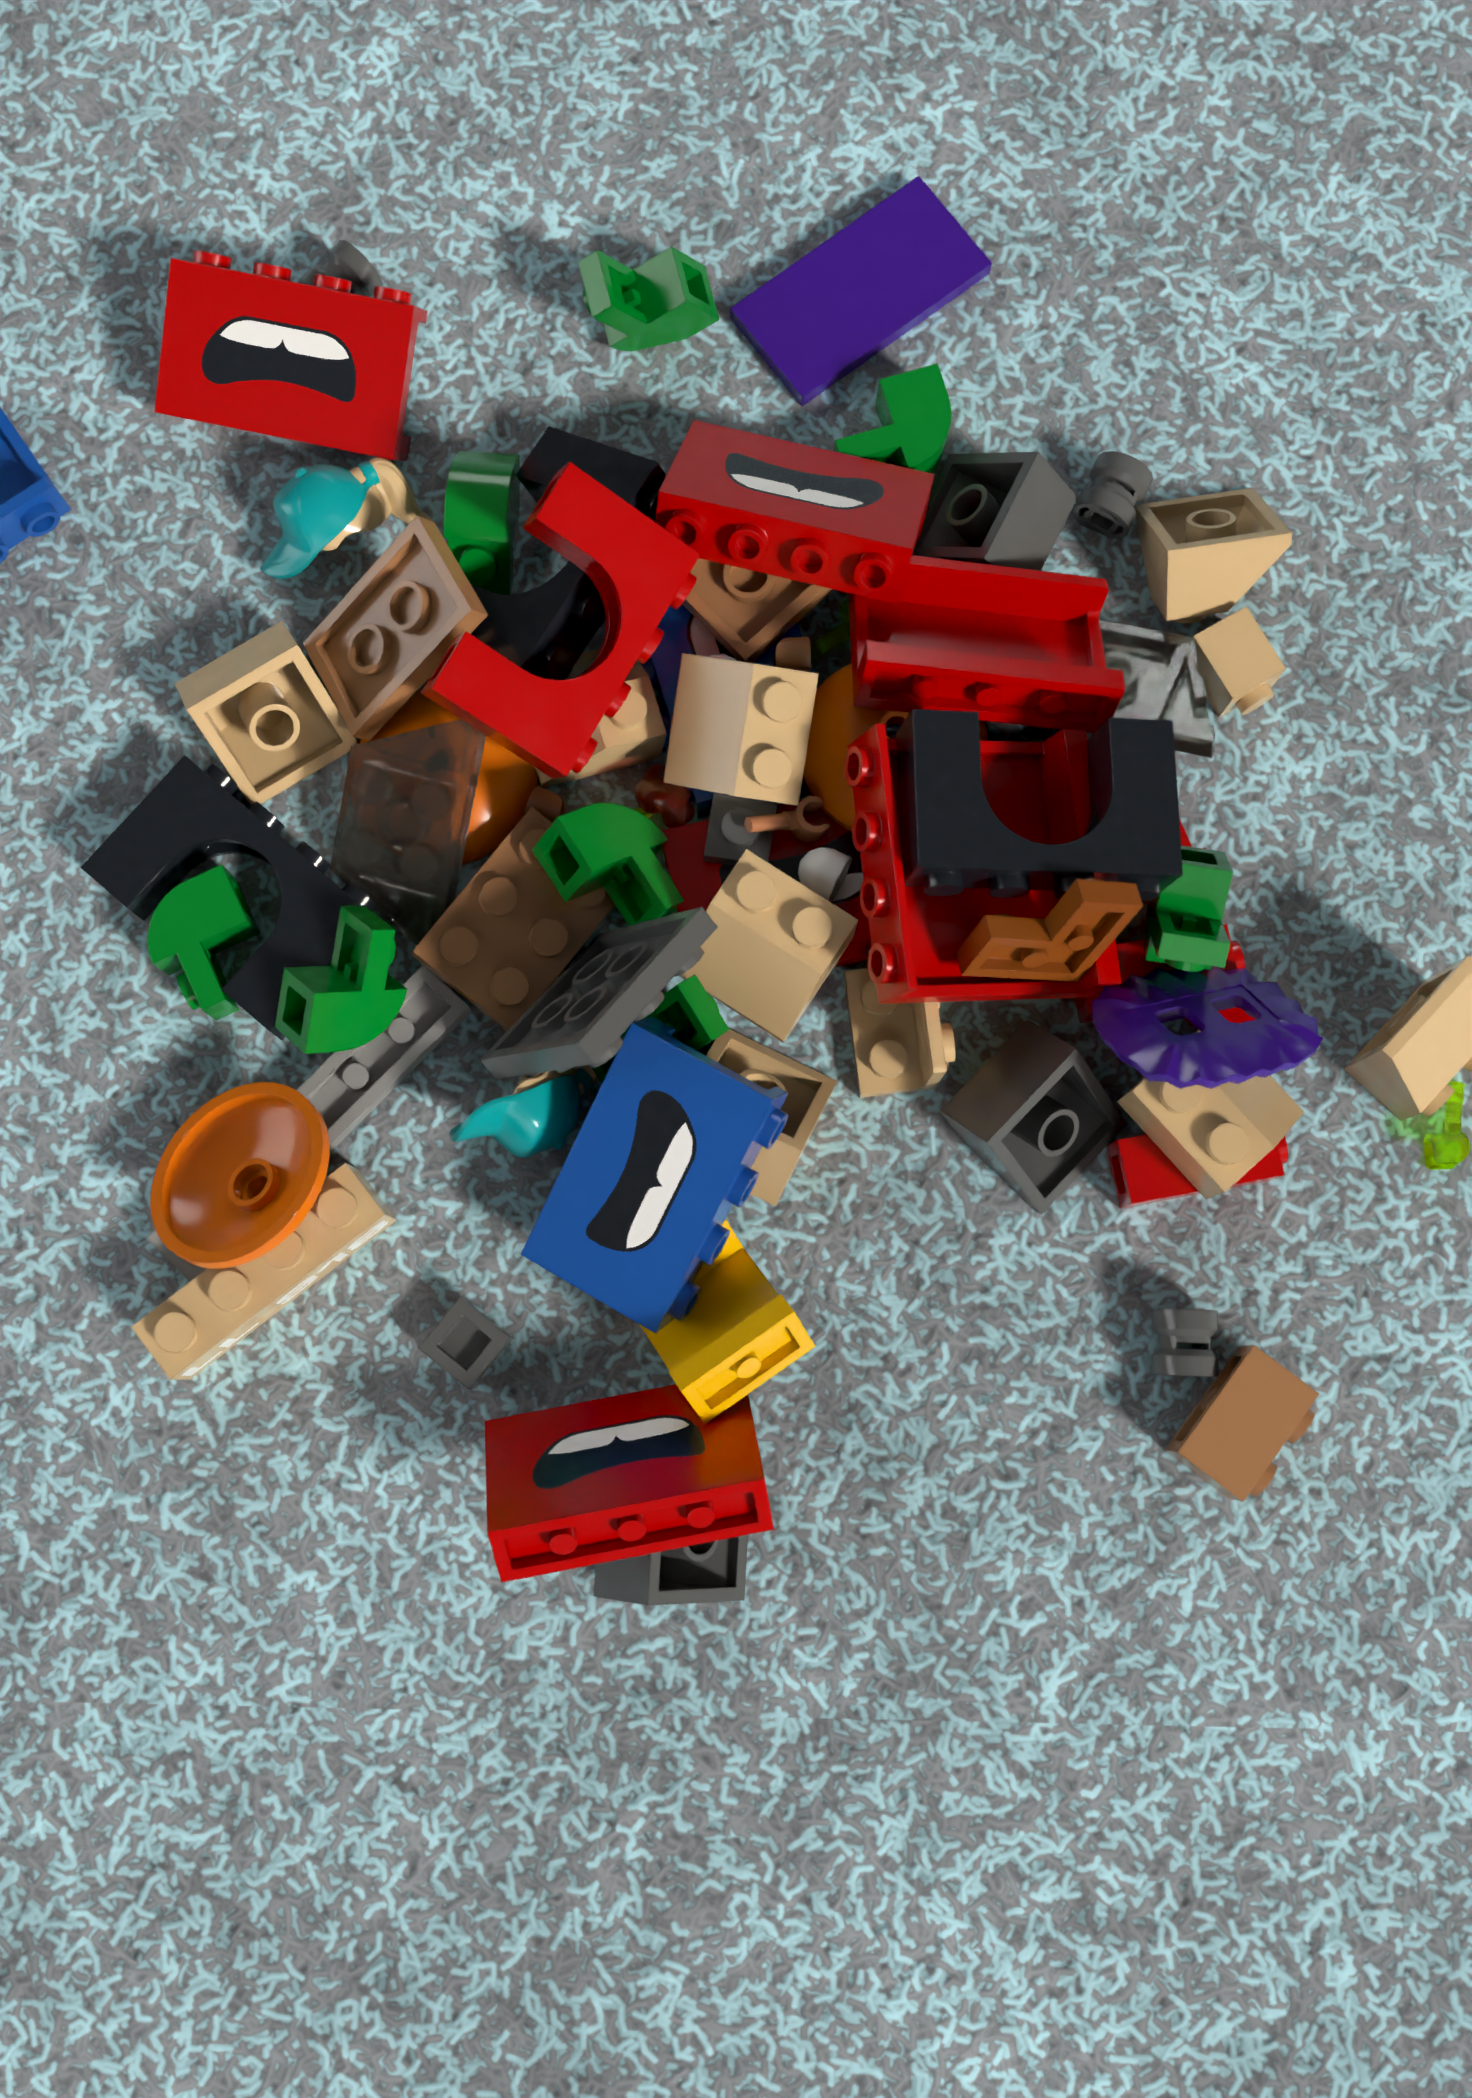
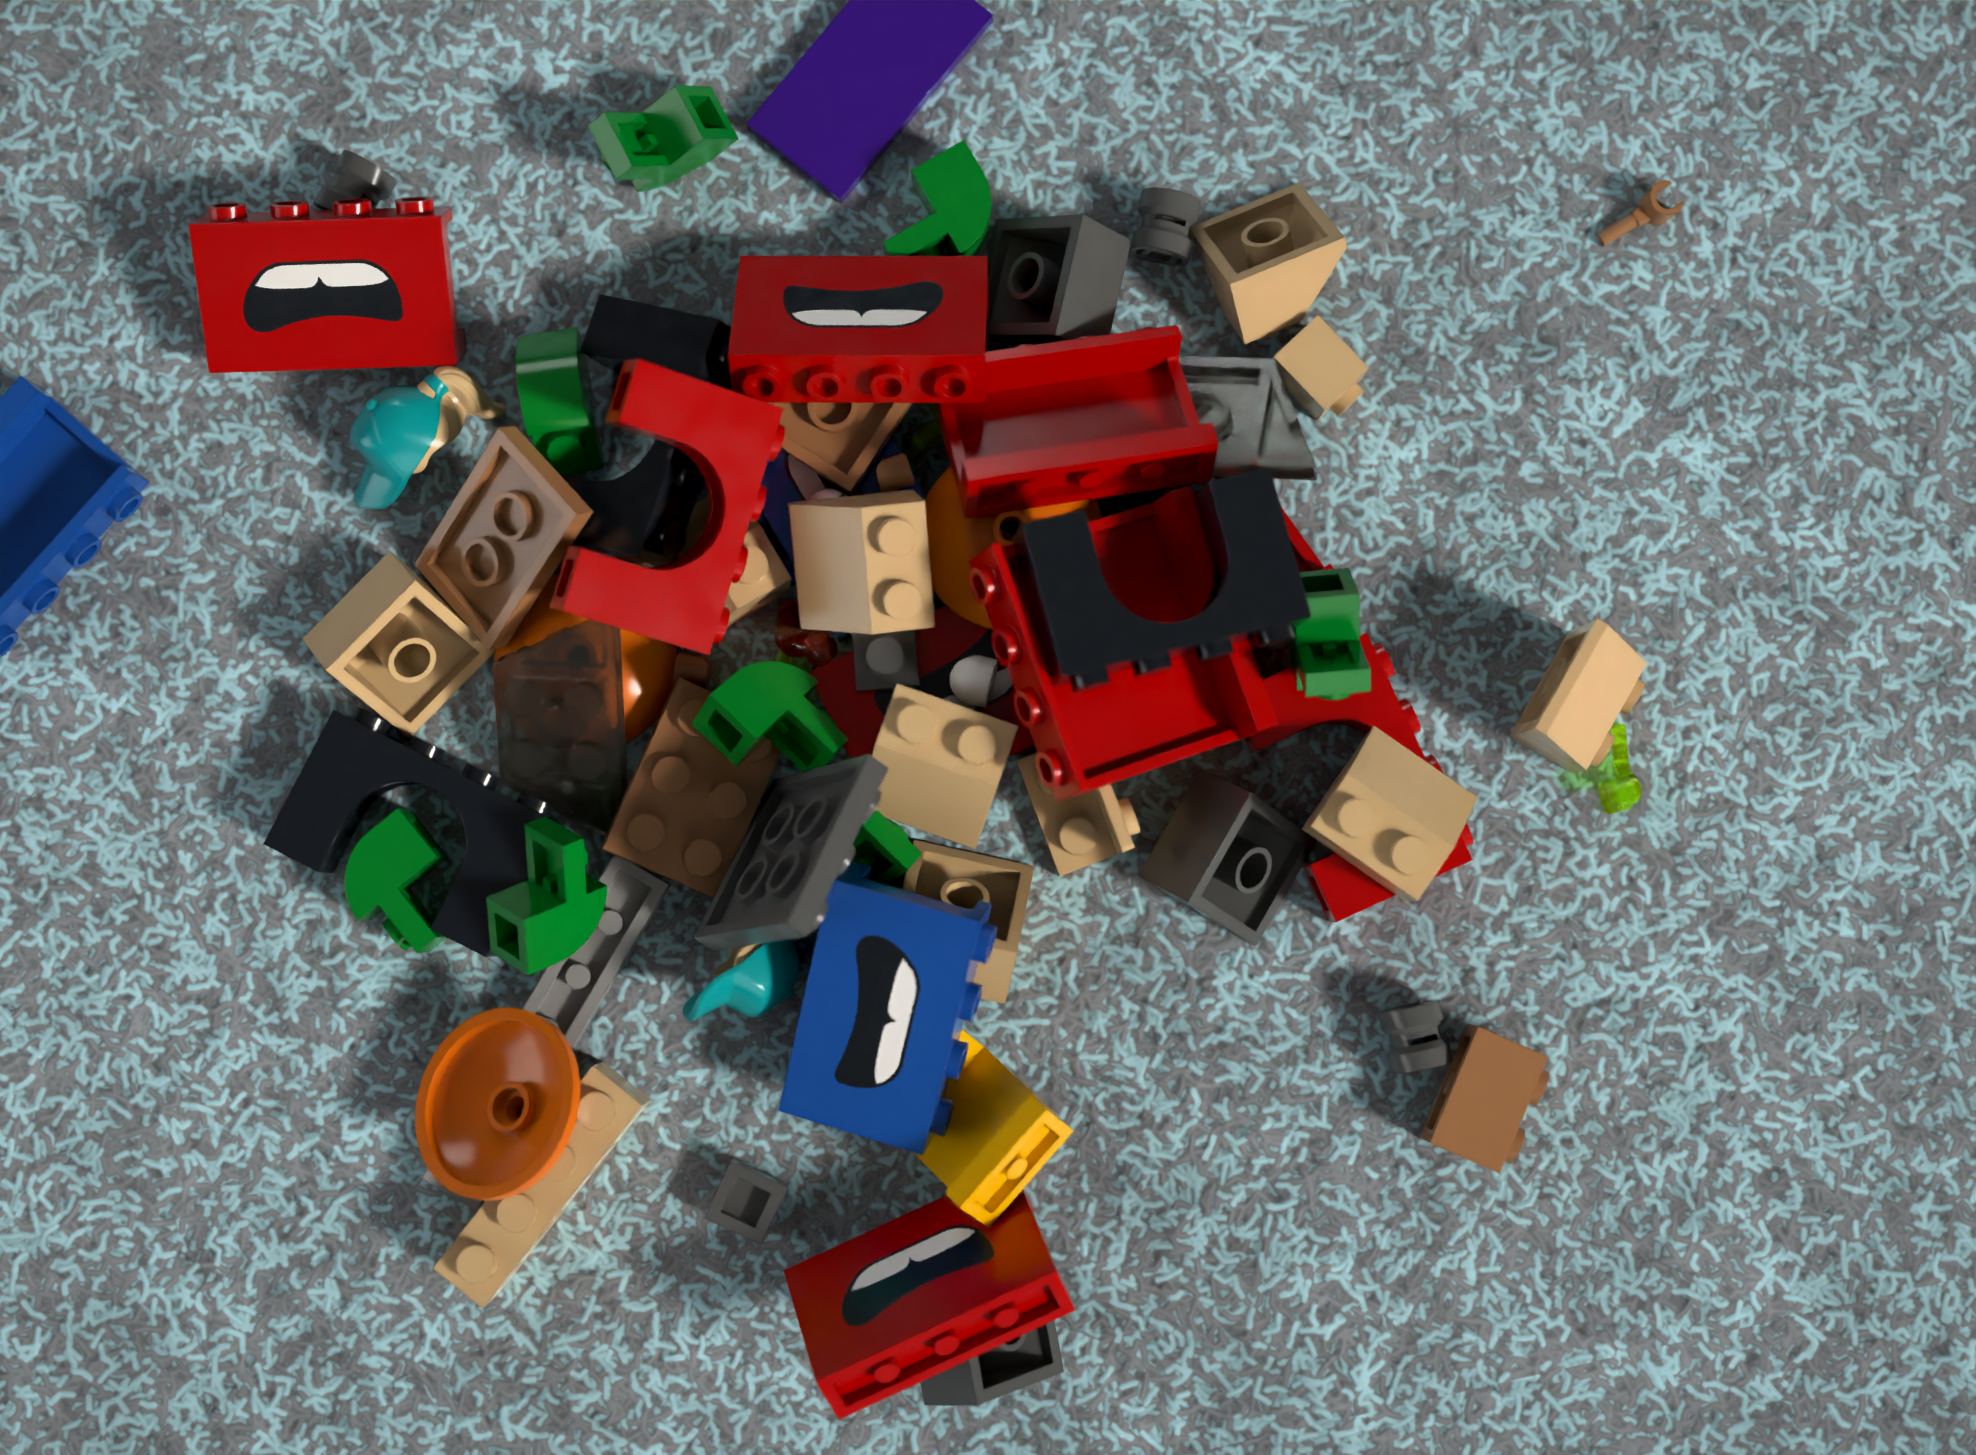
camera: 15 degrees left, 5 degrees up
(791, 821) = (928, 639): nougat hand -> none
(1052, 947) = (1210, 708): dark orange plate -> none
(1223, 1052) = (1389, 769): dark purple piece -> none

